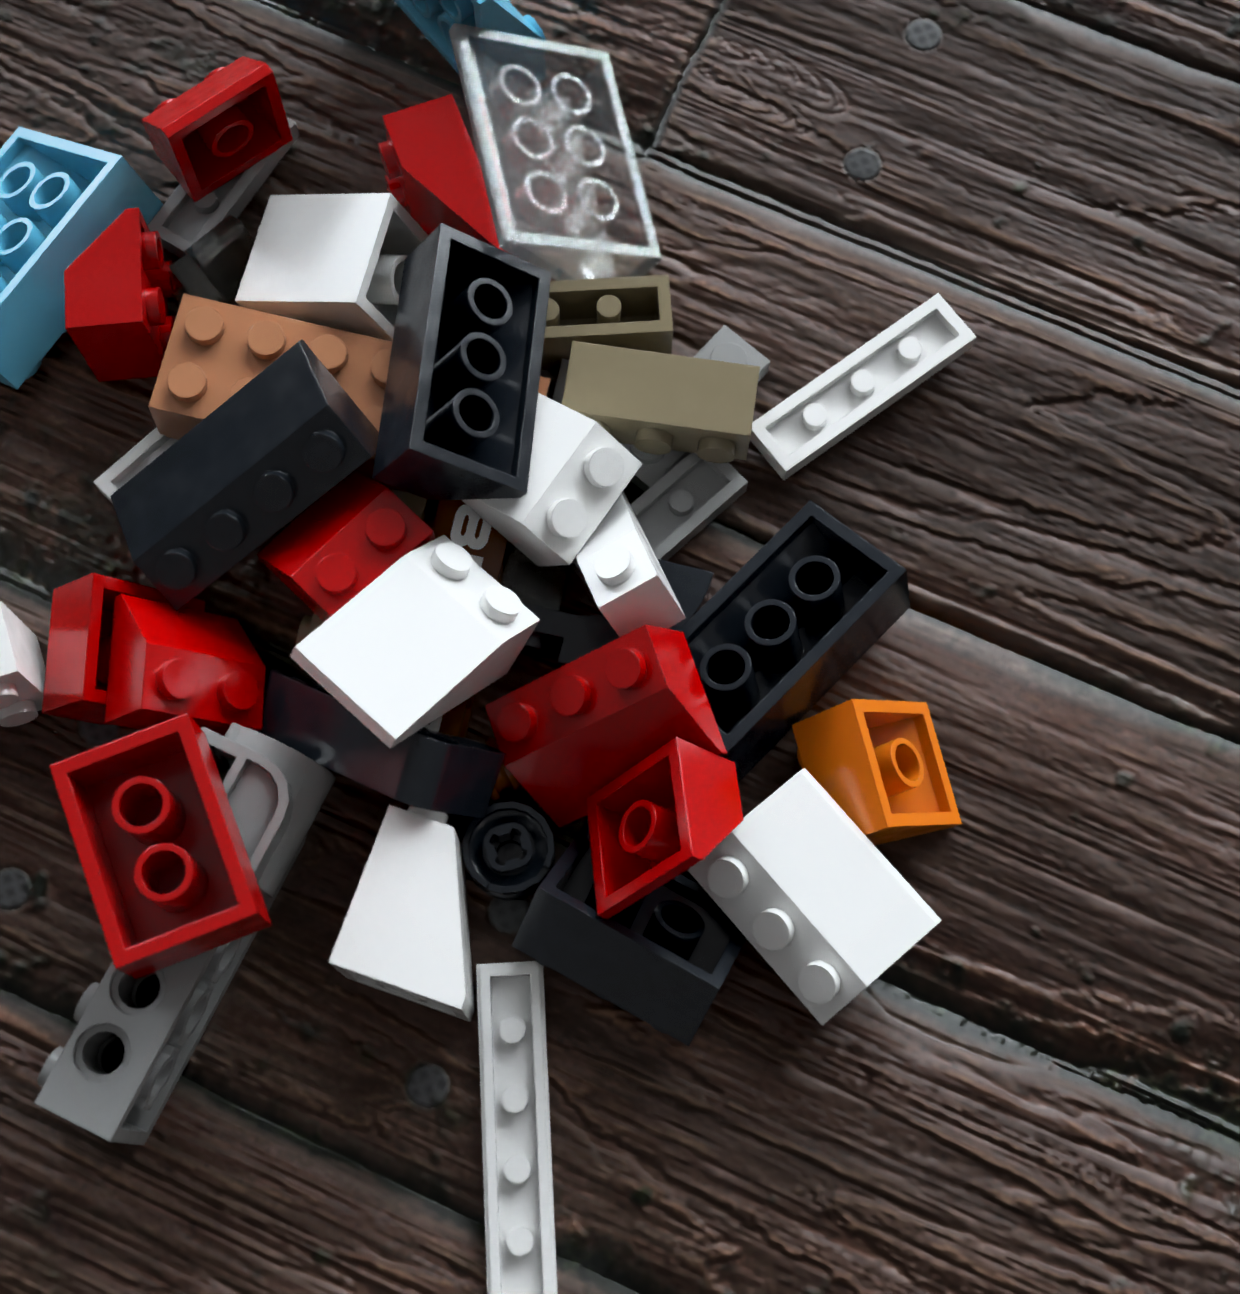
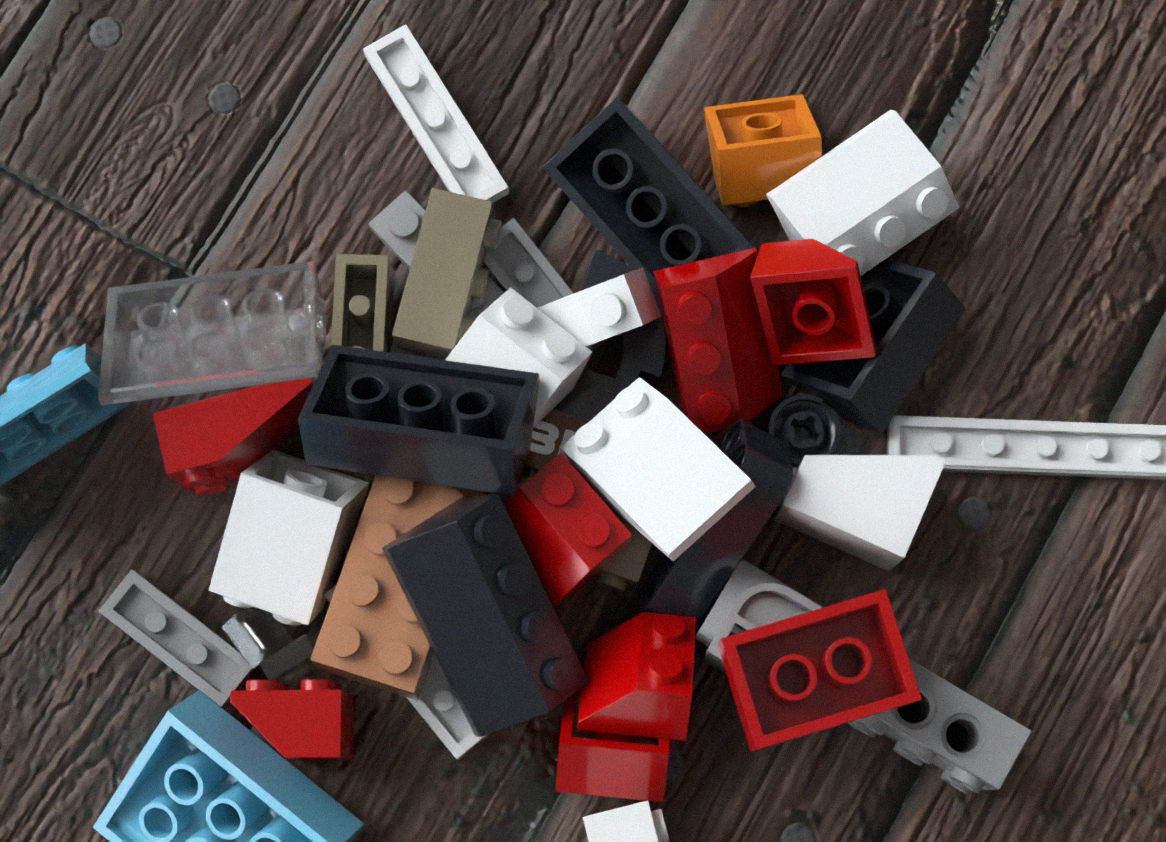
camera: 80 degrees left, 5 degrees up
(220, 126) = (137, 629): red slope -> none

